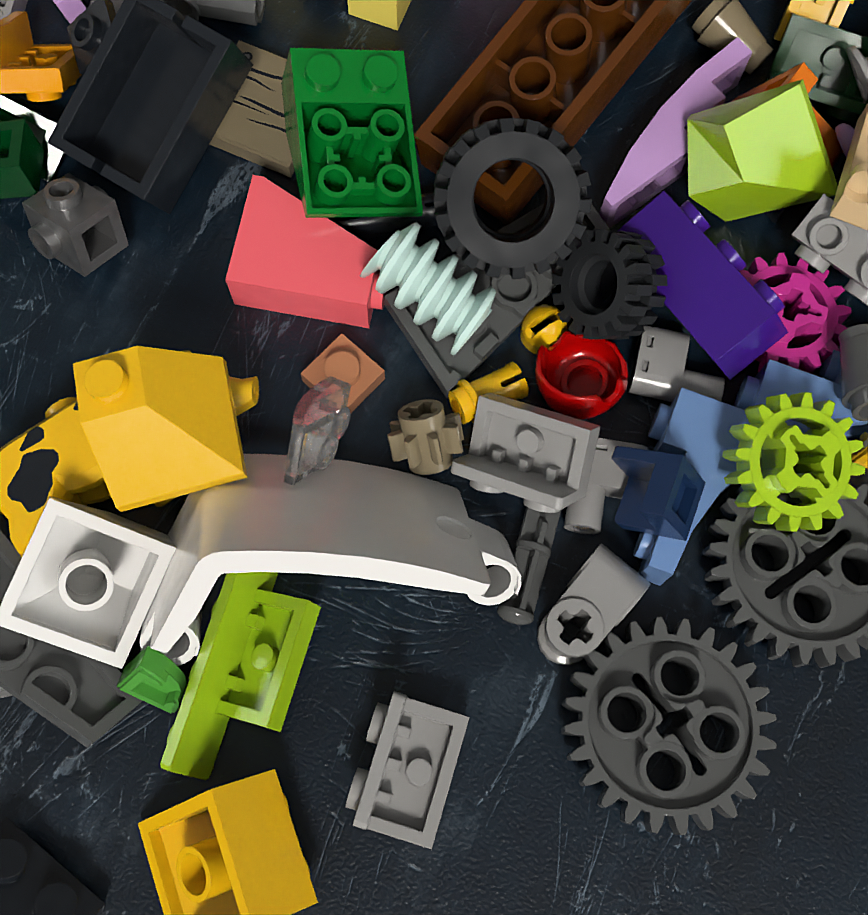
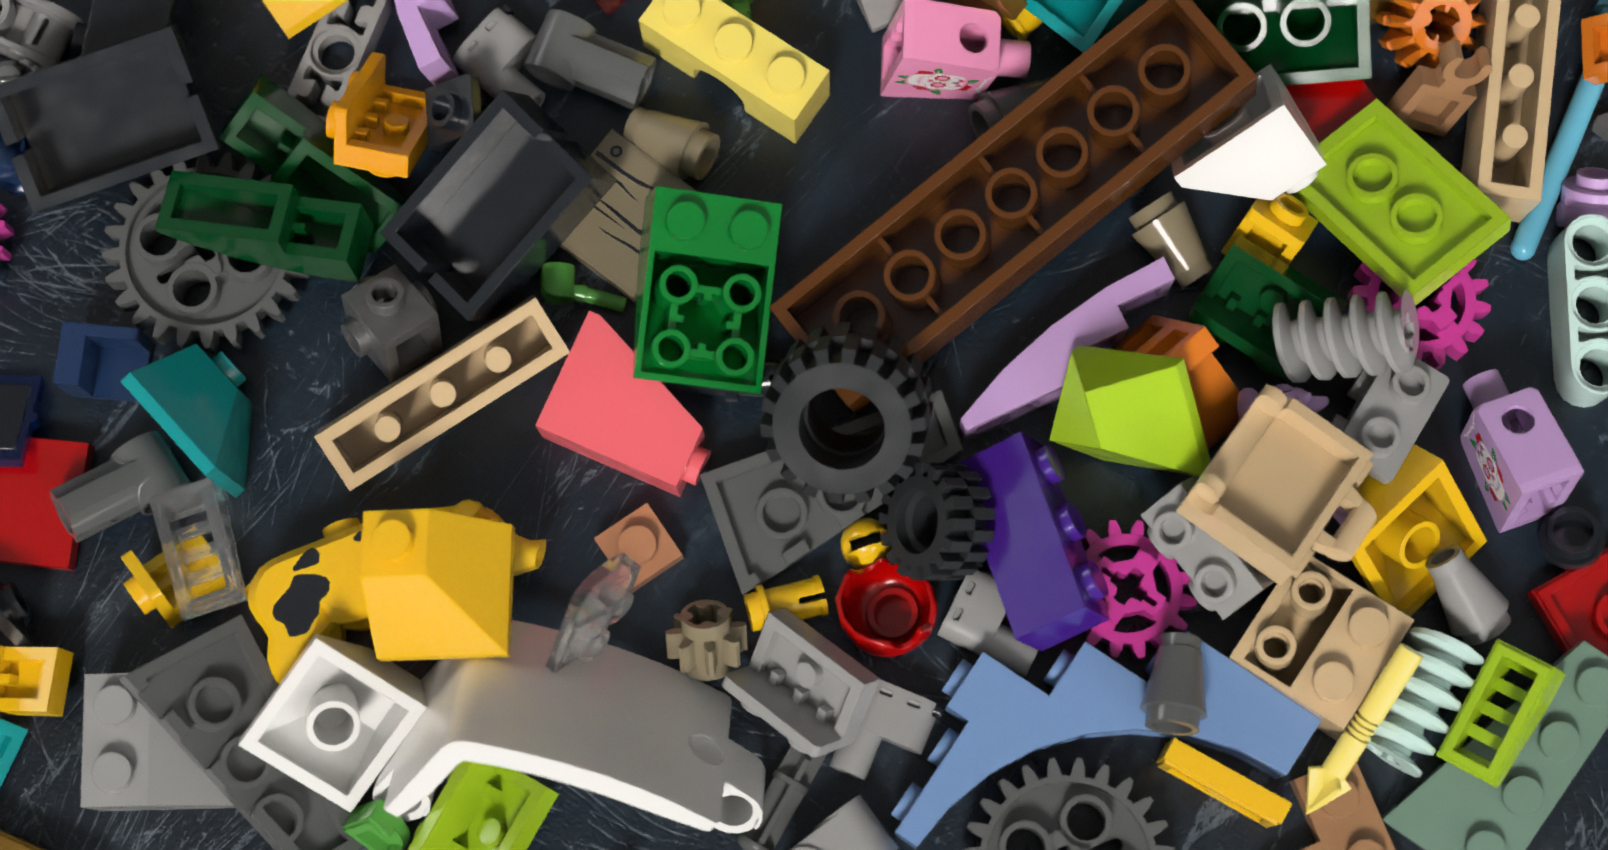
camera: 20 degrees right, 5 degrees up
(133, 269) = (441, 392): none -> tan brick
(223, 176) = (559, 288): none -> bright green hand
(288, 32) = (673, 141): none -> dark tan cone
(430, 285) = (745, 487): light aqua piece -> none
(659, 492) = (922, 764): dark blue panel -> none
(785, 460) = (1092, 754): lime gear -> none

